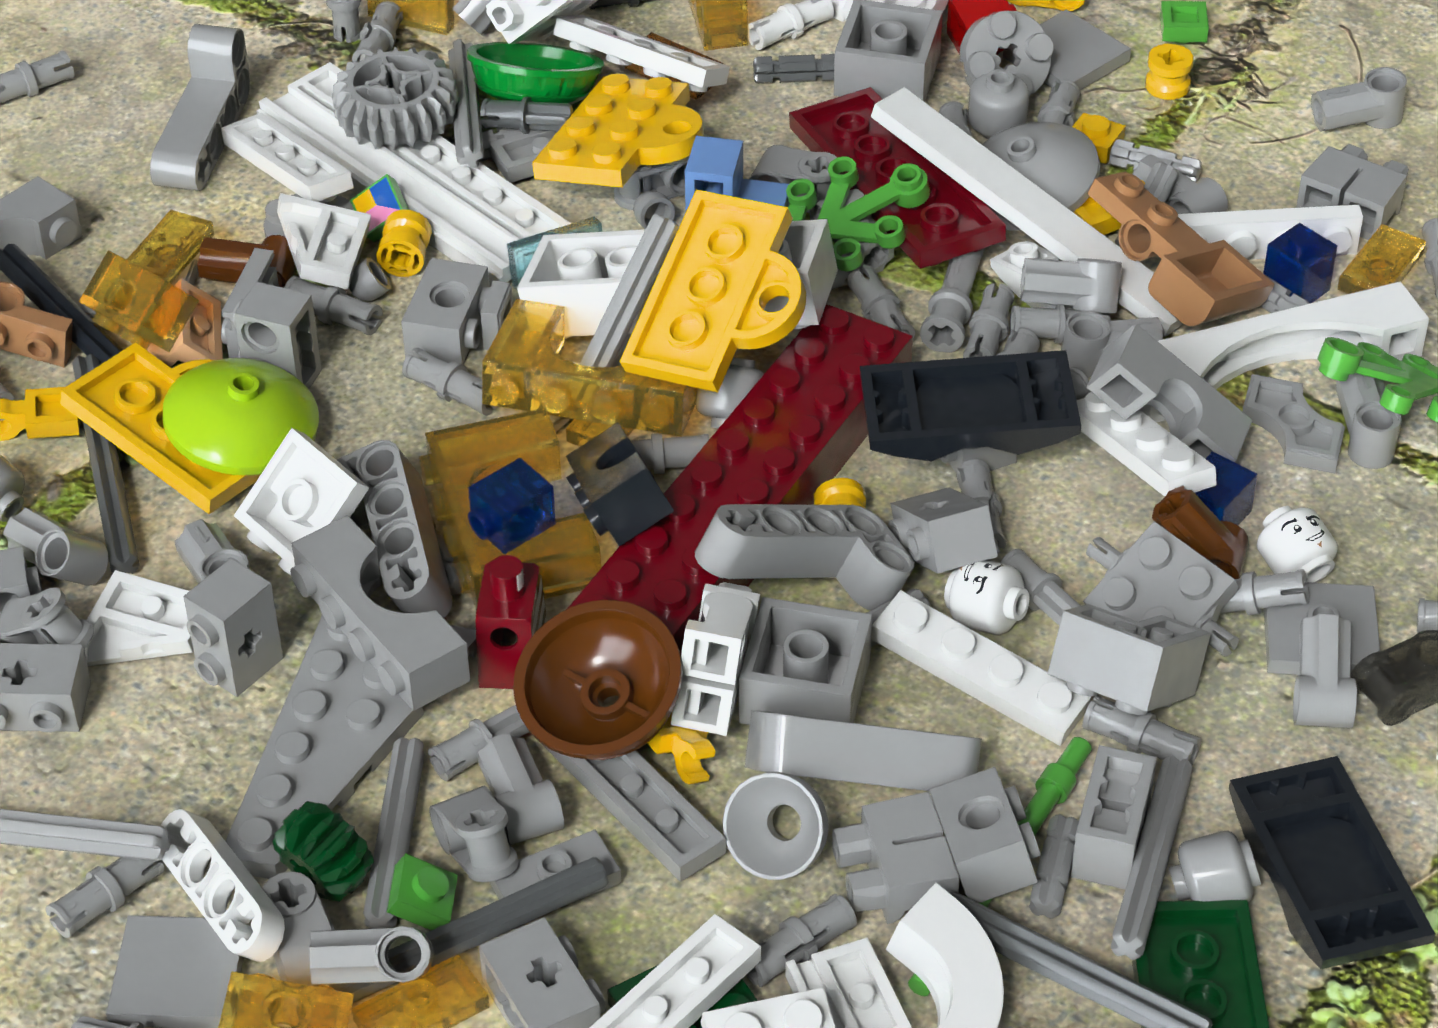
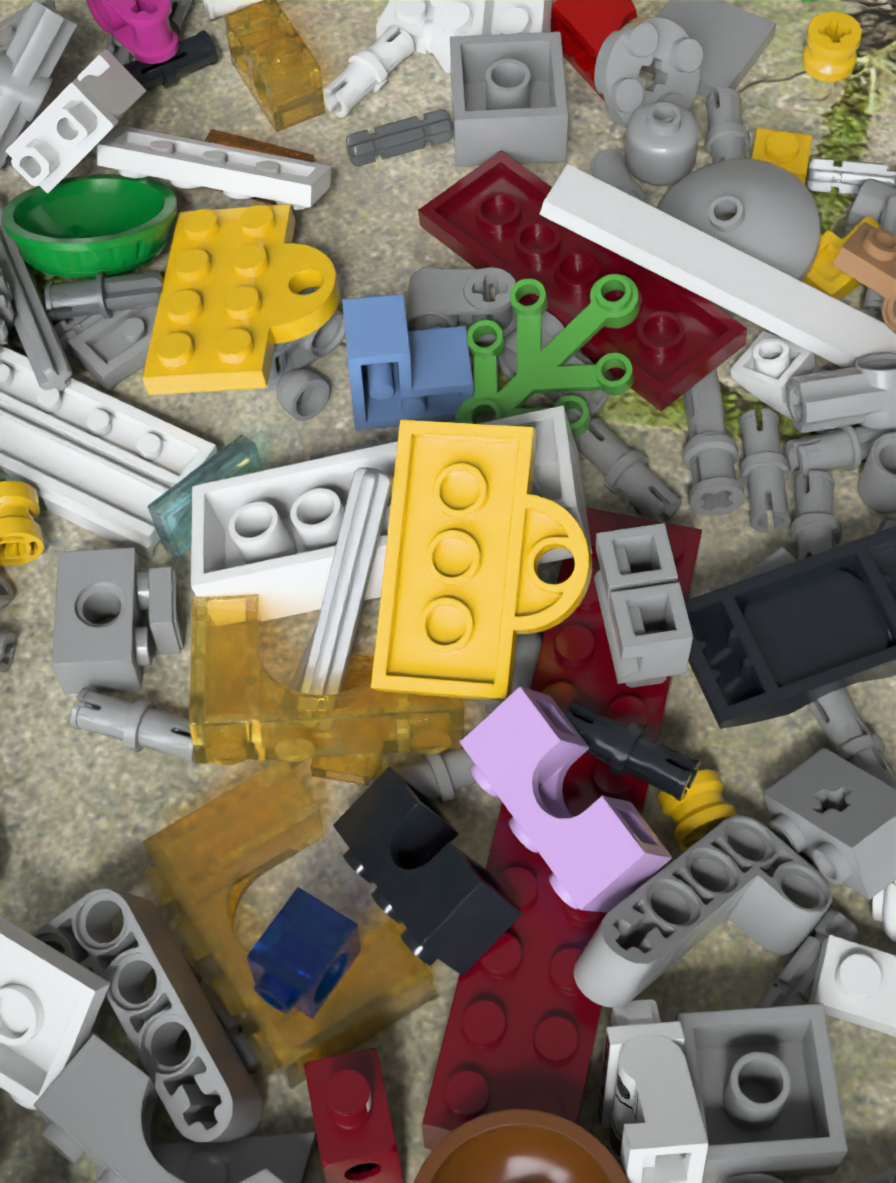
camera: 15 degrees left, 15 degrees up
(715, 426) = (522, 760): none -> lavender arch
(792, 439) = (633, 752): none -> black pin
(831, 345) = (642, 605): none -> light grey hips

